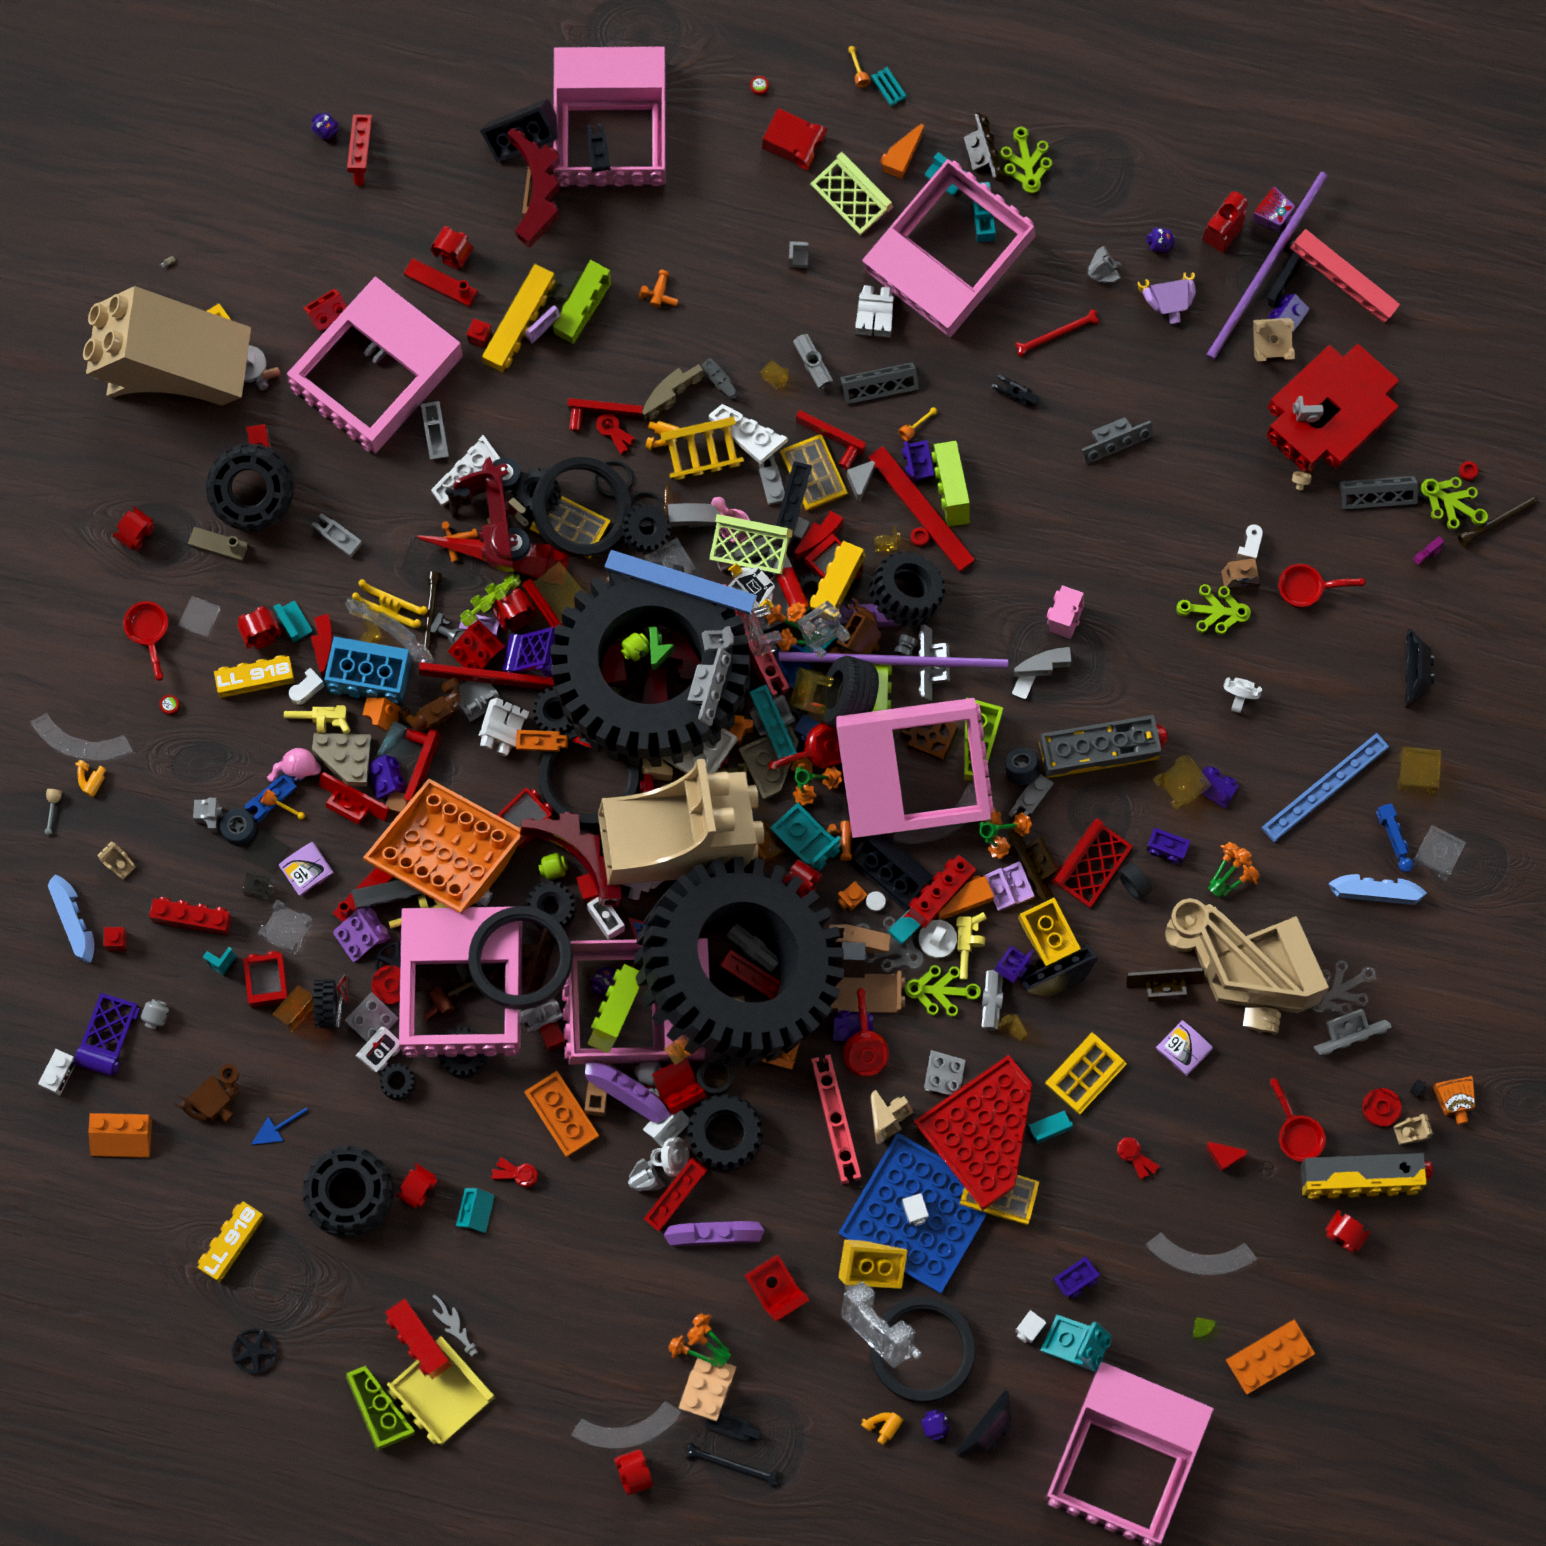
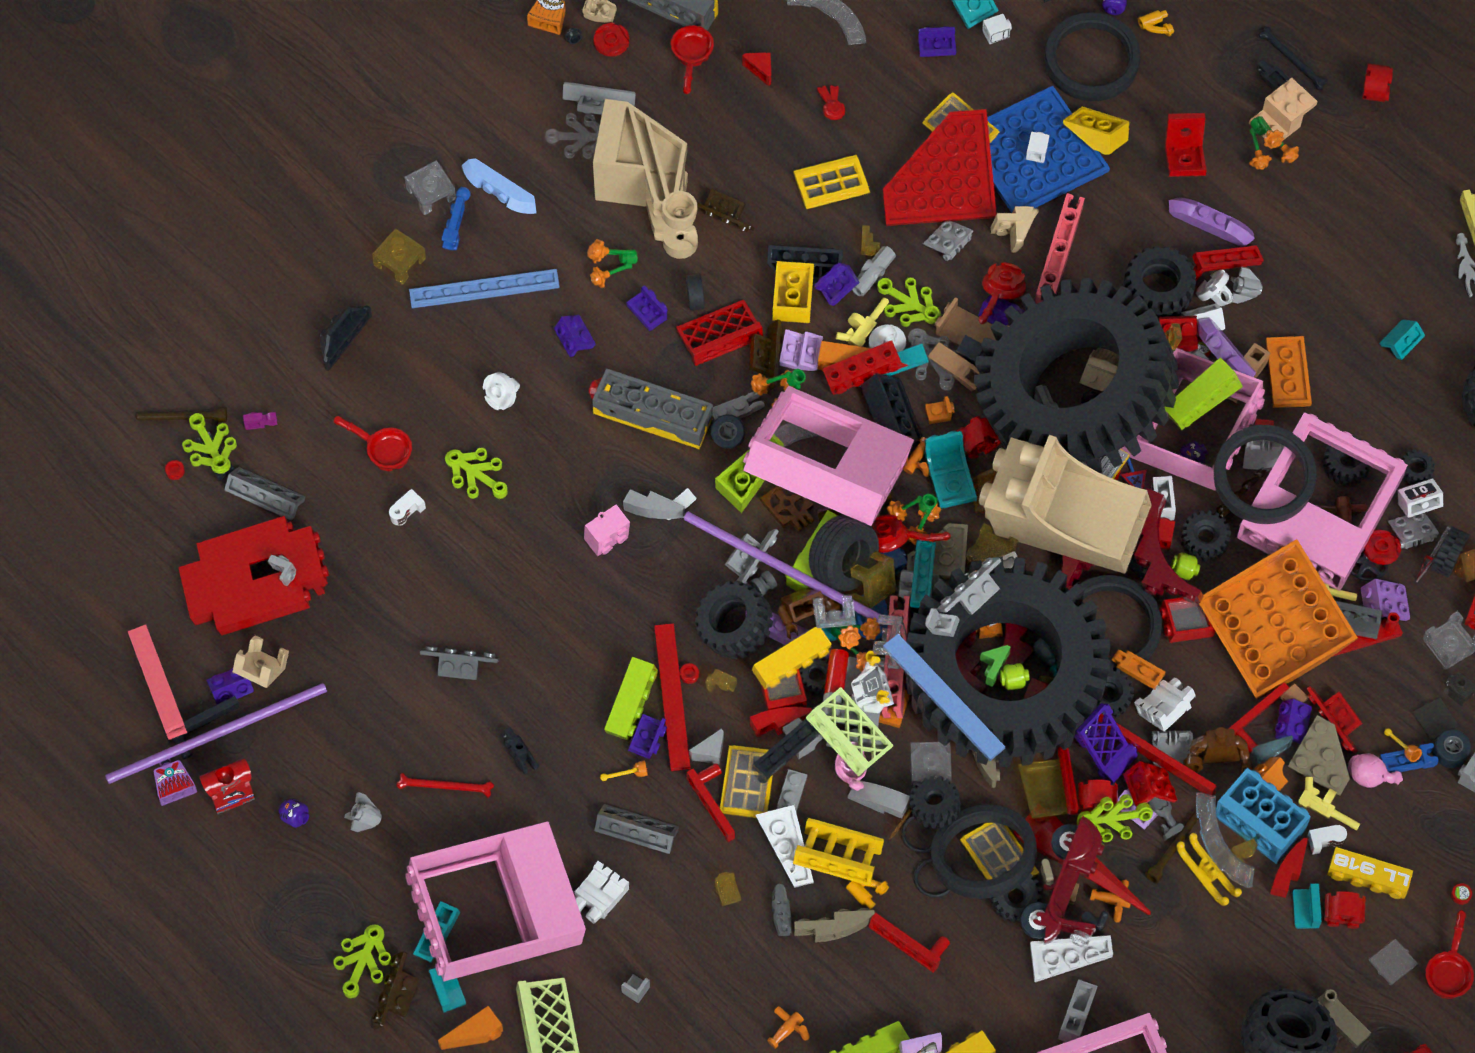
camera: 150 degrees left, 10 degrees down
(306, 868) = (1407, 682): slope -> none
(338, 536) = (1223, 962): light grey hinge -> none
(416, 1186) = (1444, 374): red brick -> none
(524, 1175) = (1345, 342): red piece -> none
(609, 426) = (910, 924): red piece -> none
(627, 1436) = (1364, 117): clear tile -> none
(750, 974) = (1064, 385): red piece -> none
(807, 352) = (685, 889): light grey piece -> none
(875, 901) = (921, 397): white tile -> none
(891, 1343) = (1117, 52): clear brick -> none
(1050, 1127) = (886, 155): teal panel -> none
(1170, 296) = (322, 754): lavender torso -> none
(1183, 782) = (600, 346): clear yellow panel -> none
(1184, 1048) = (739, 158): lavender slope -> none
(1242, 574) = (433, 484): medium nougat torso -> none
(1301, 479) = (325, 537): tan tile -> none

